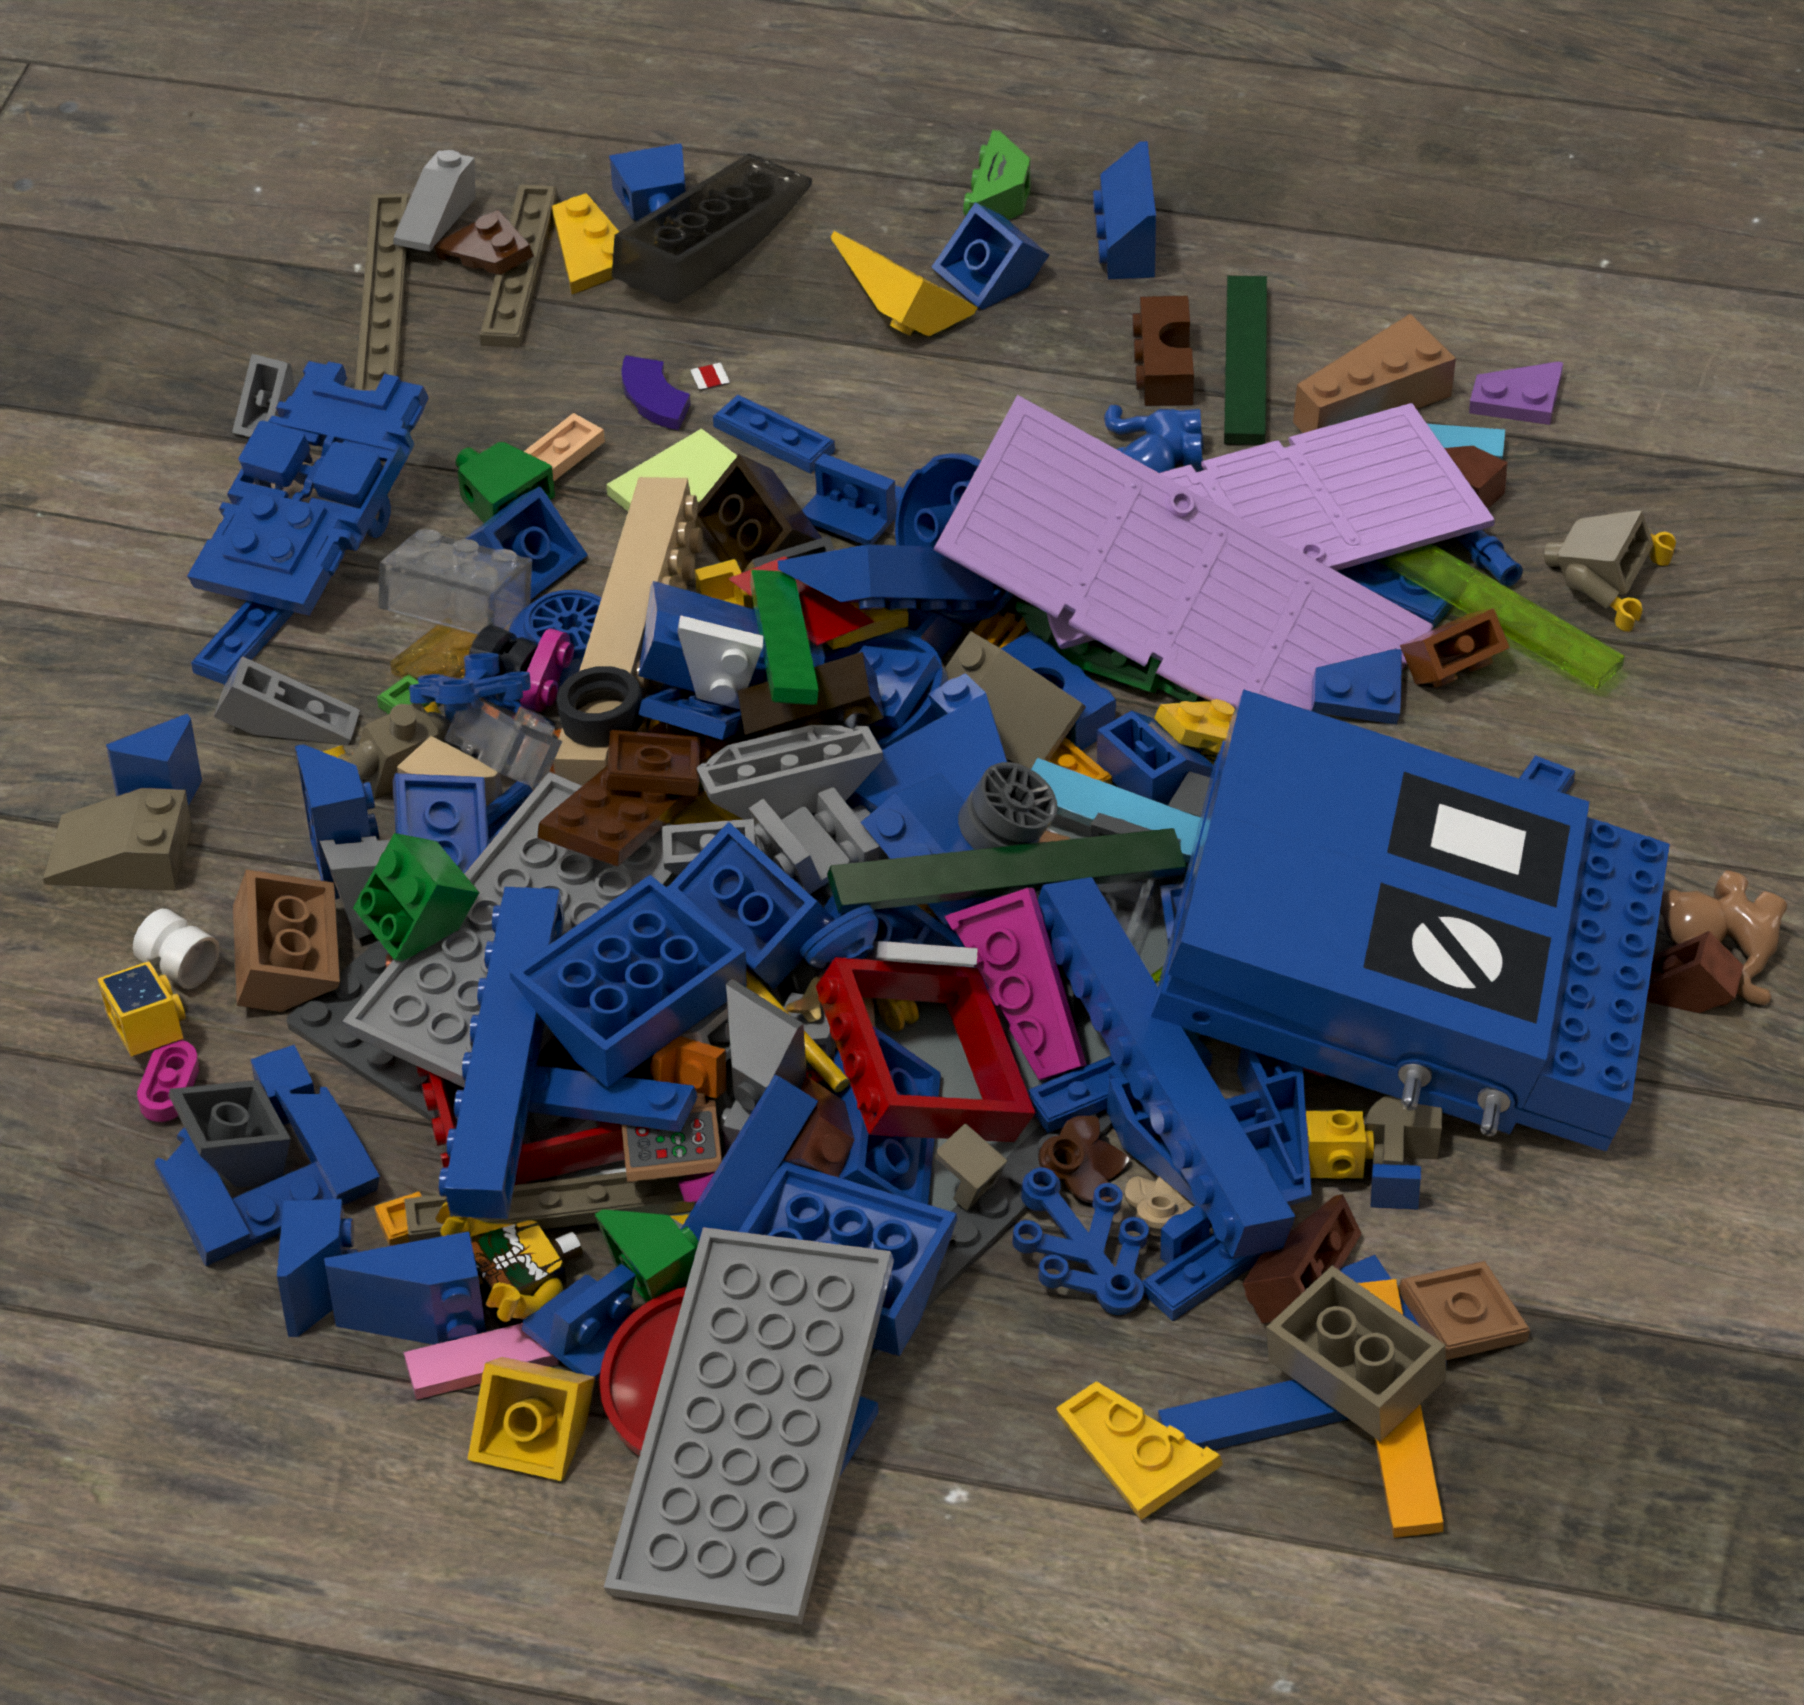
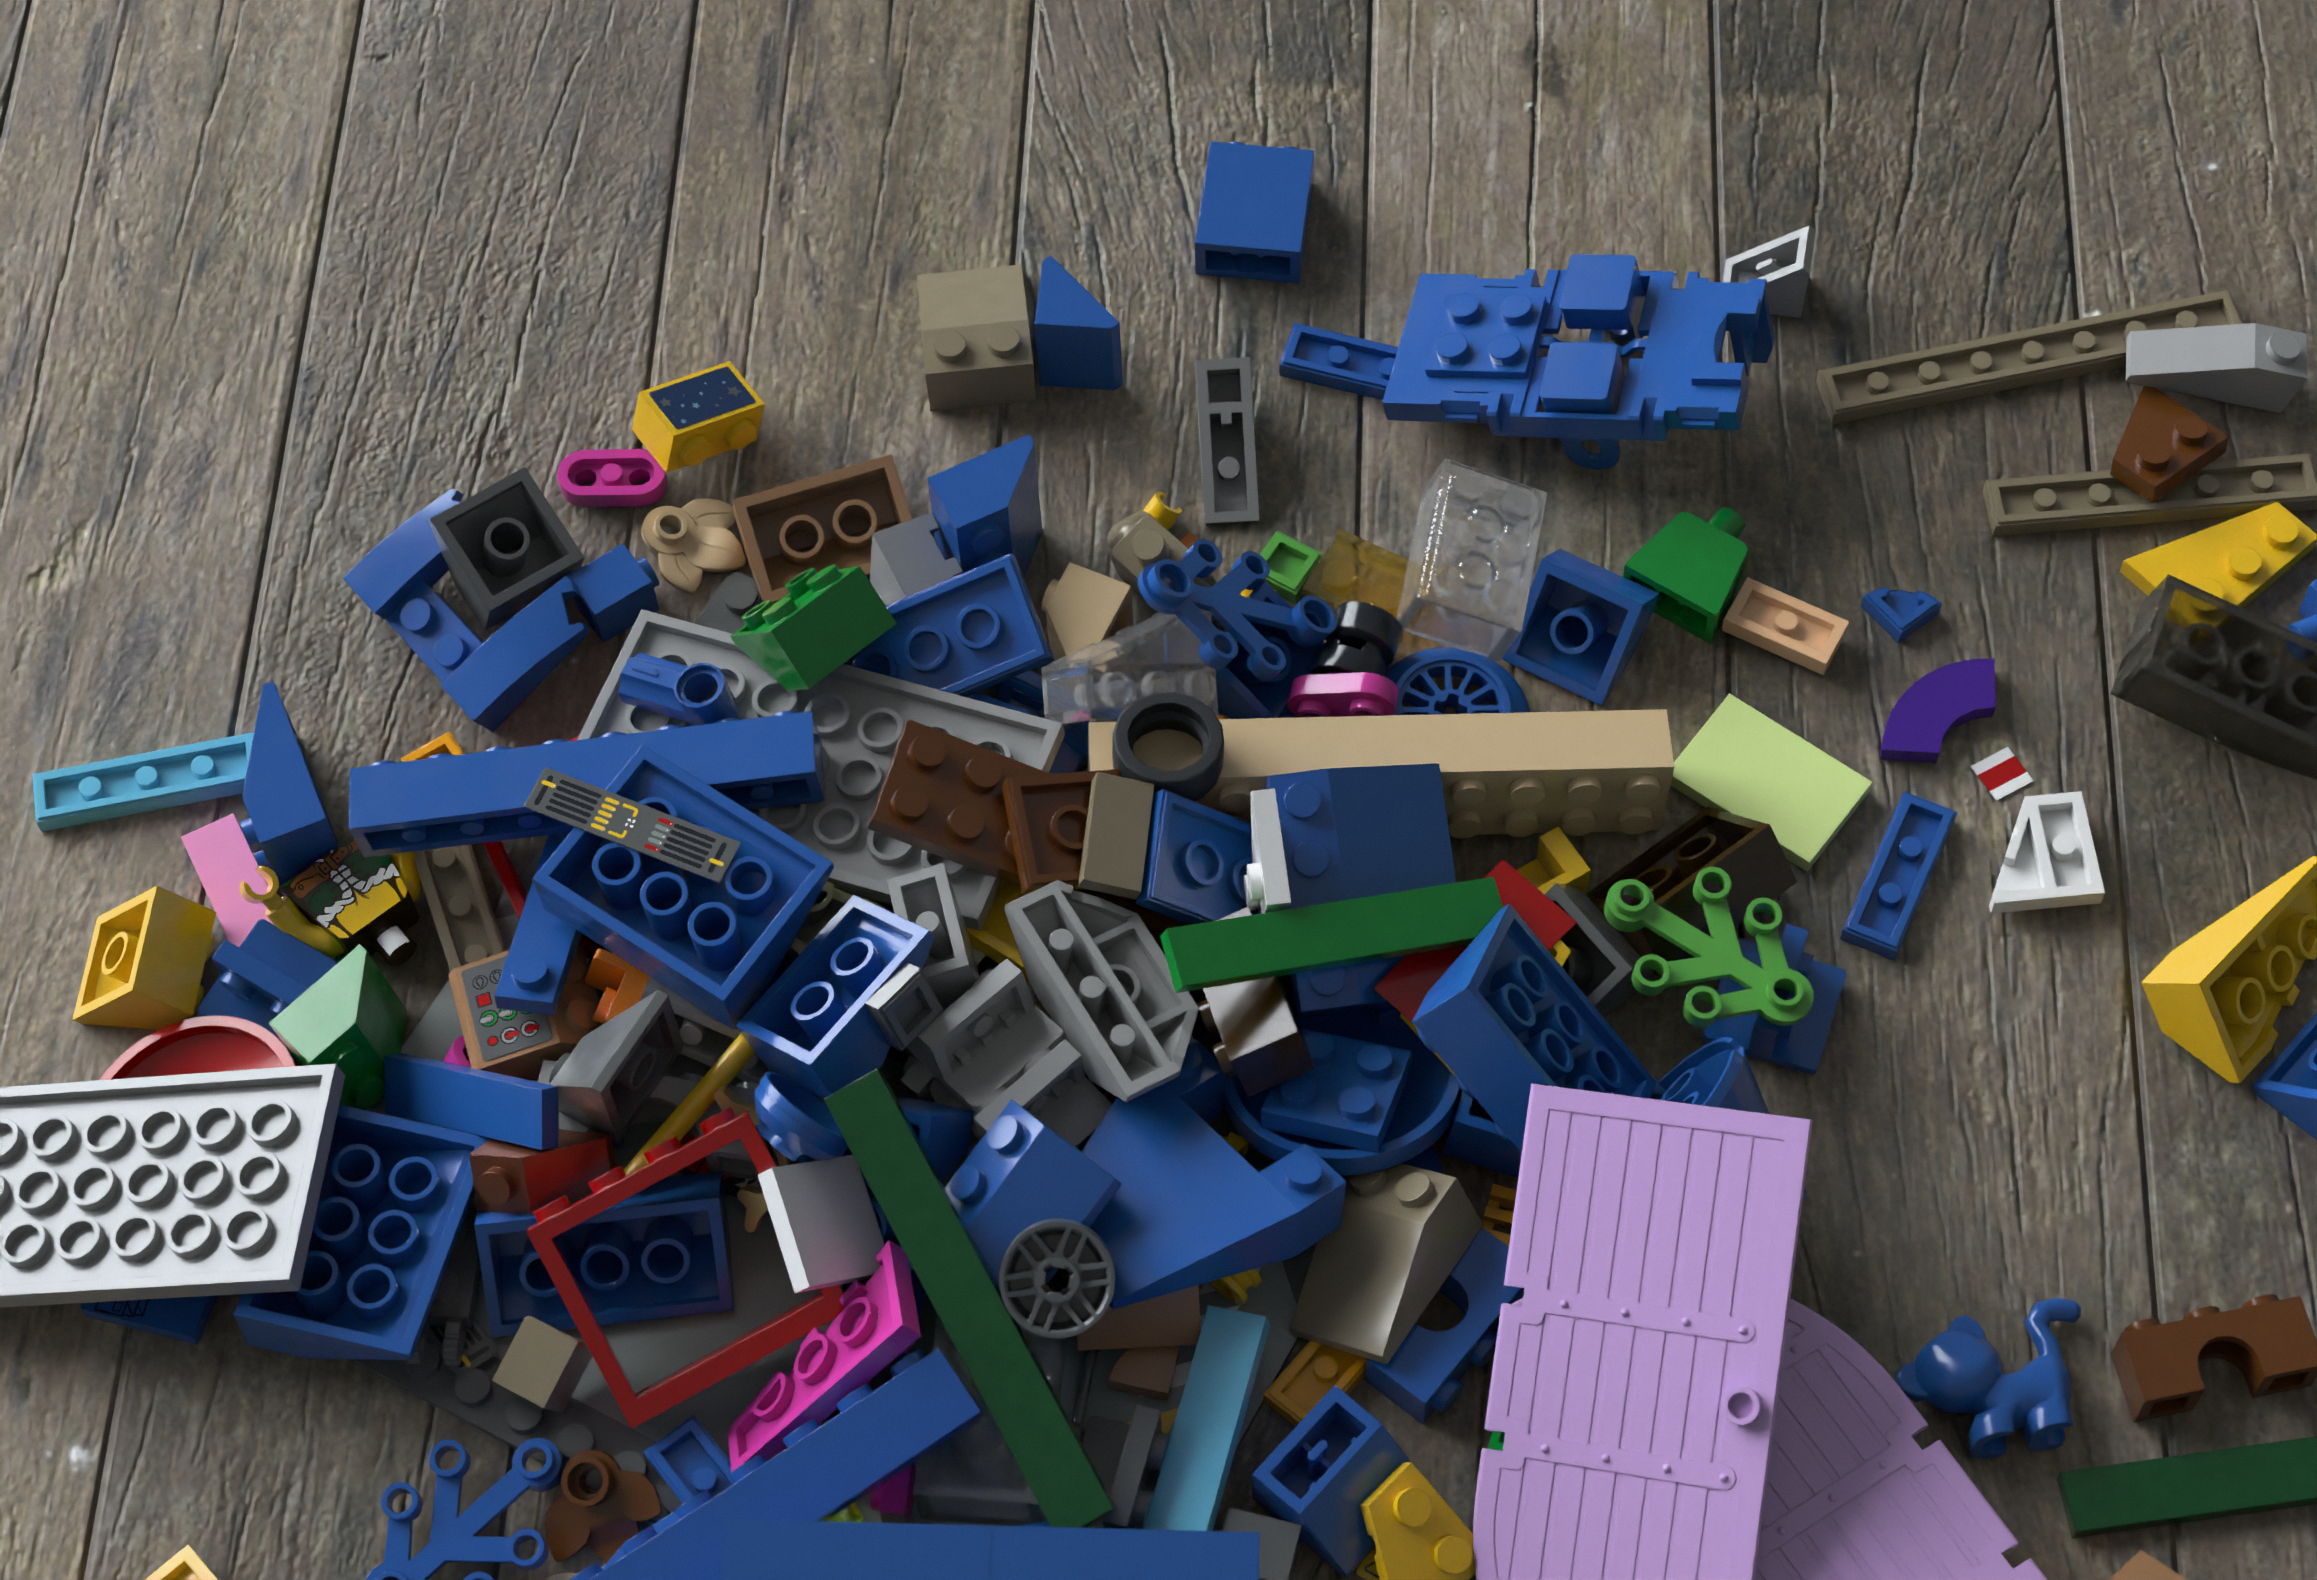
camera: 80 degrees right, 15 degrees up
(79, 666) = (1254, 212): none -> blue brick
(176, 949) = (805, 428): white wheel -> none
(247, 1038) = (699, 545): none -> tan plate
(308, 1235) = (323, 679): blue slope -> none
(346, 1418) = (141, 782): none -> medium azure tile
(442, 983) = (677, 690): none -> blue piece
(567, 397) = (1900, 611): none -> blue tile
(578, 985) = (632, 824): none -> dark grey sticker
(669, 733) = (1116, 835): none -> dark tan tile
(778, 854) = (904, 1006): none -> dark grey tile
(785, 358) = (2049, 857): none -> white wing
(869, 467) = (1715, 955): none -> bright green plant

